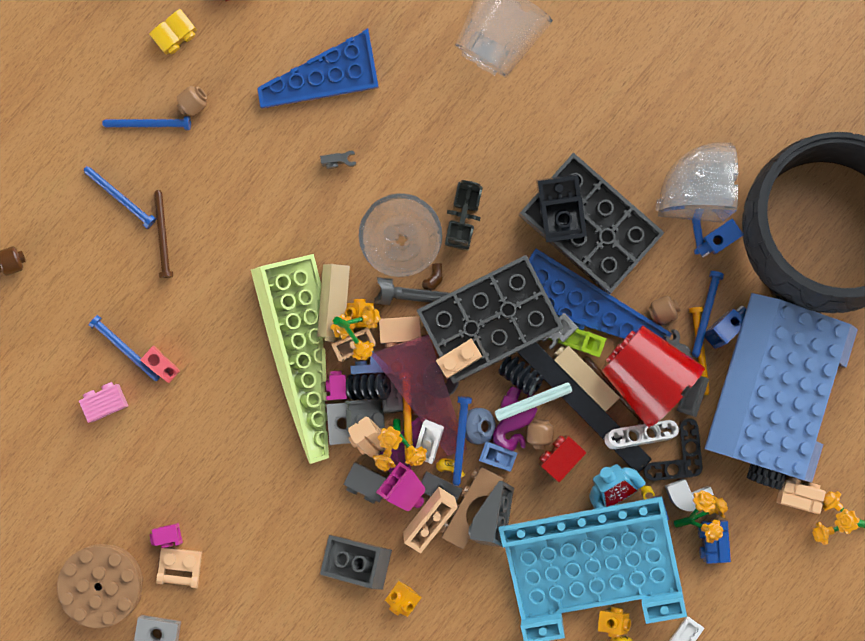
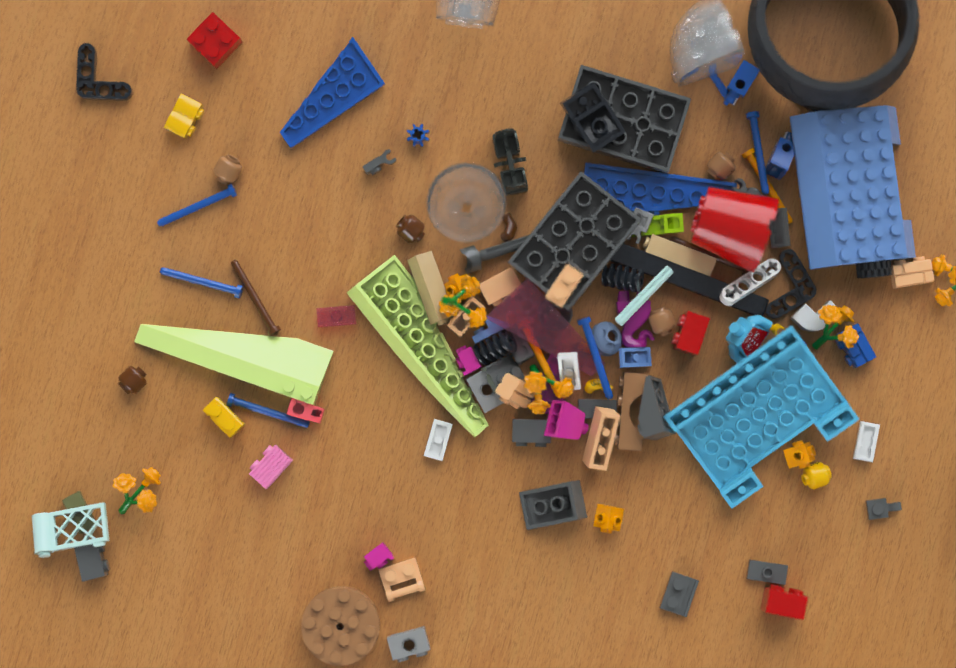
camera: 25 degrees left, 0 degrees up
(80, 335) = (223, 417): none -> yellow brick
(146, 302) = (266, 361): none -> yellowish green wedge
(231, 287) = (336, 316): none -> clear pink plate
(274, 449) = (438, 439): none -> white plate
(339, 236) = (410, 228): none -> reddish brown head
(383, 146) = (420, 130): none -> blue gear

